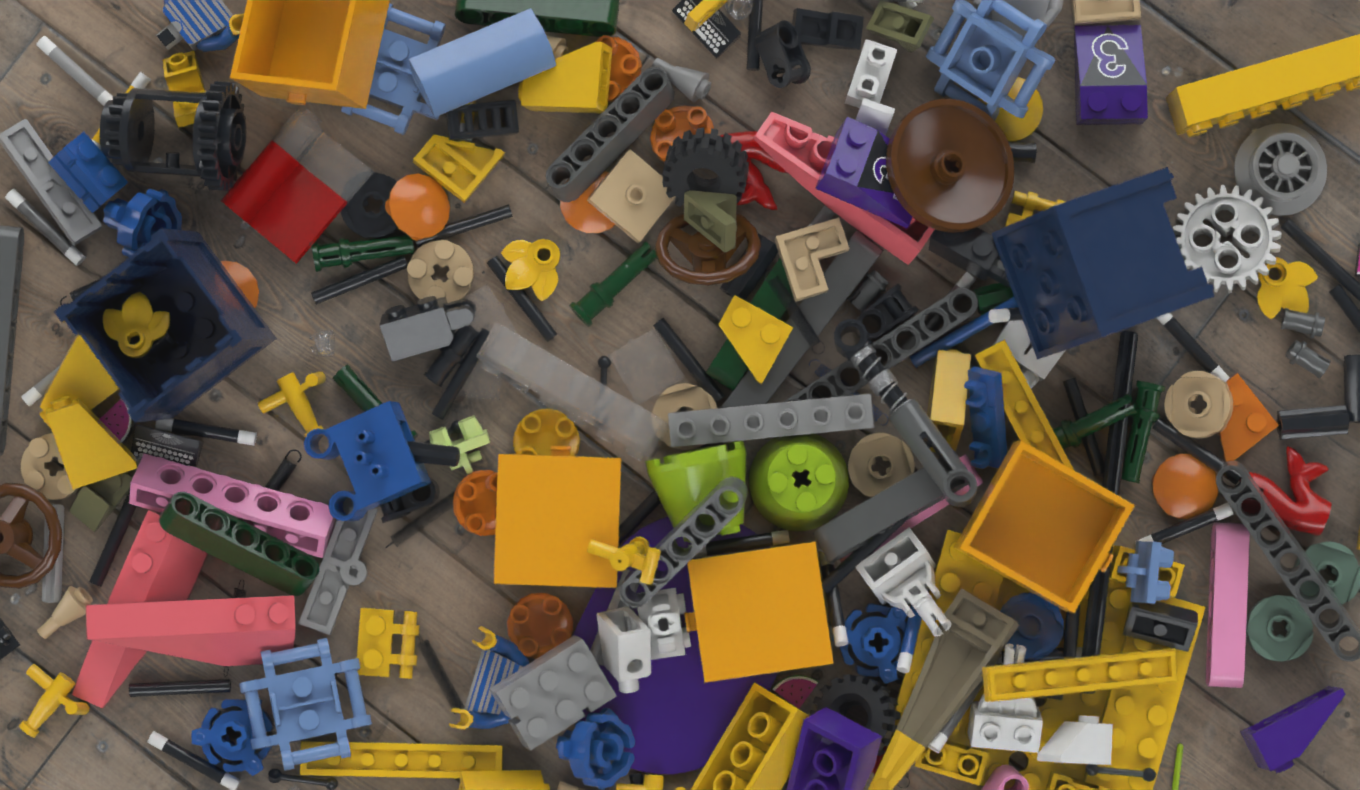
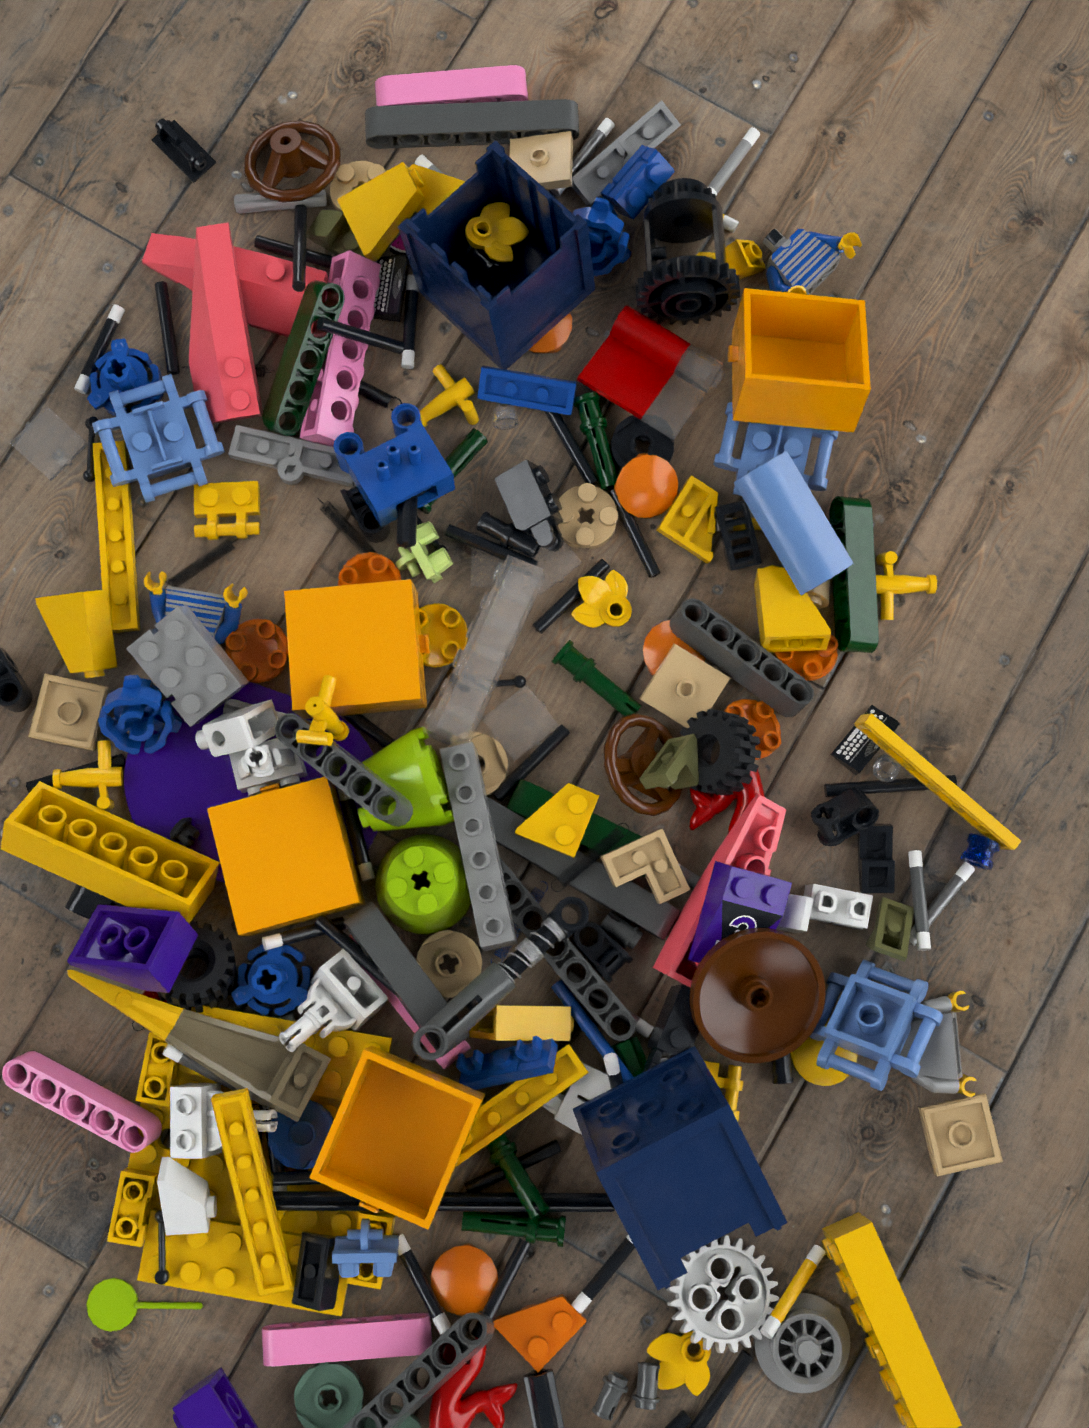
camera: 80 degrees right, 5 degrees down
(49, 270) = (545, 158): none -> tan plate
(55, 694) = (148, 217): yellow piece -> none
(68, 609) = (238, 221): tan cone -> none
(117, 535) = (299, 248): none -> black bar
(222, 481) = (360, 335): none -> black bar
(301, 316) = (527, 390): none -> blue plate
(690, 82) = (804, 729): light grey cone -> none
(718, 716) = (183, 831): none -> black piece
(744, 284) = (610, 805): black axle -> none
(795, 689) = (218, 906): dark pink tile -> none
(909, 642) = (271, 1012): blue bar -> none
(1110, 75) = (872, 1151): dark purple slope -> none
(1213, 417) = (563, 1299): tan plate -> none
(1232, 171) = (792, 1291): none -> yellow bar

